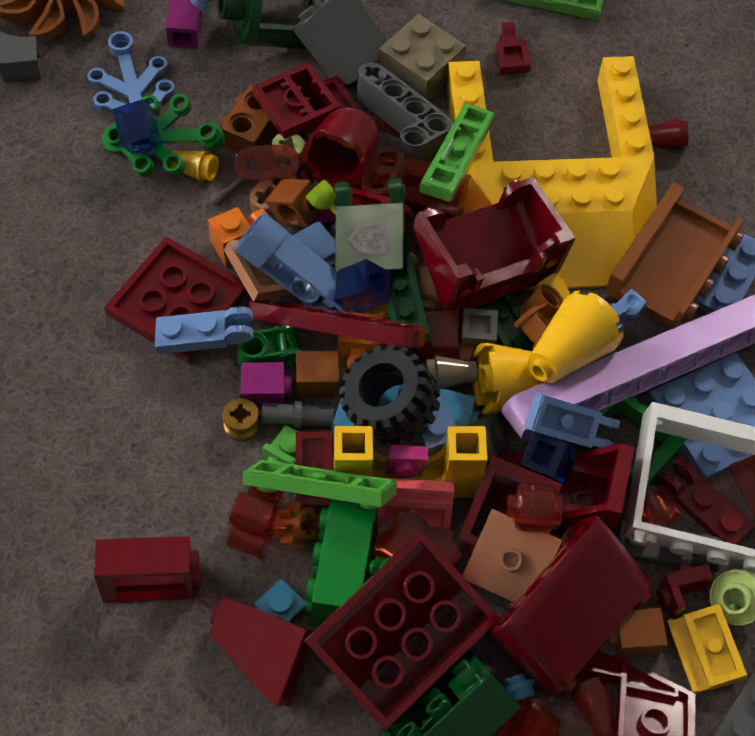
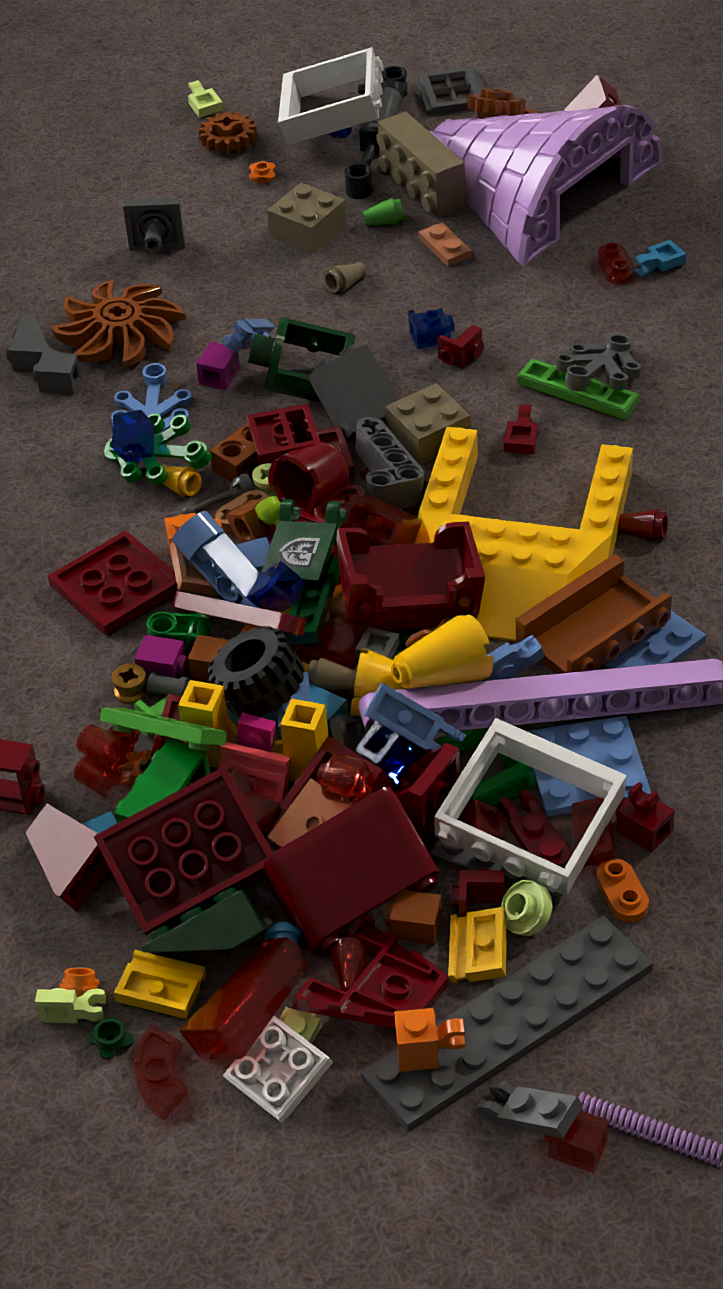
camera: 25 degrees right, 15 degrees down
(203, 330) = (122, 603): medium blue hinge -> none
(267, 162) = (242, 483): clear red plate -> none
(457, 152) = (409, 493): bright green plate -> none

